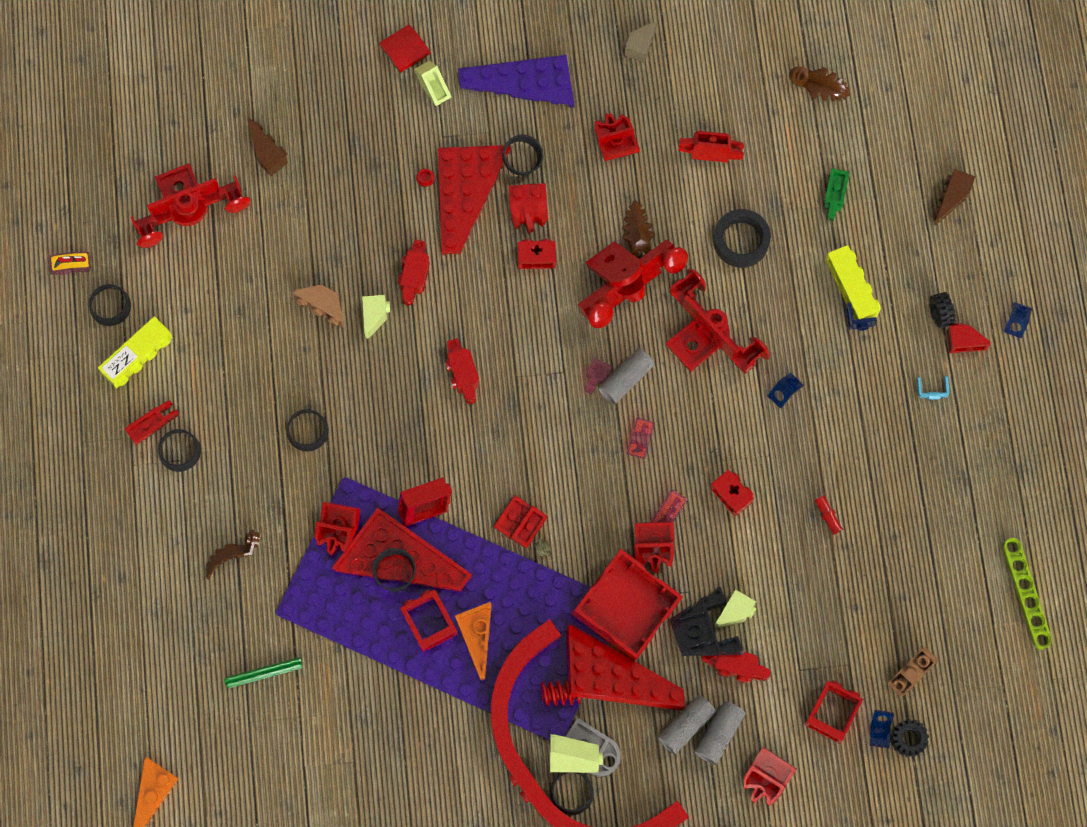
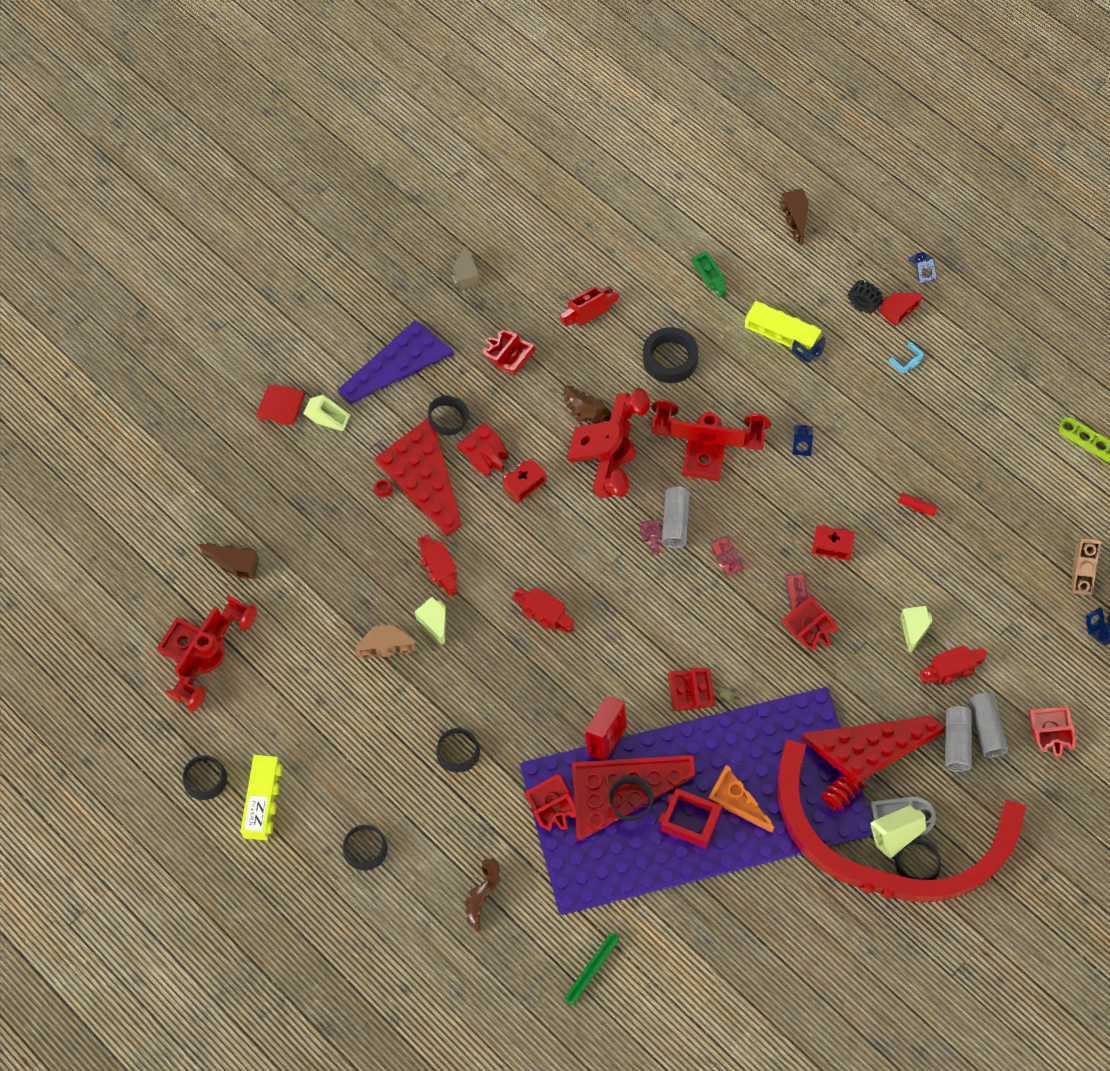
camera: 35 degrees left, 10 degrees down
(69, 262) = (140, 768): slope -> none
(150, 422) = (321, 844): red hinge -> none
(626, 605) = (832, 684): red tile -> none
(695, 631) = (903, 665): black wing -> none
(819, 82) = (627, 204): reddish brown plant -> none
(823, 728) = (1059, 661): red window -> none

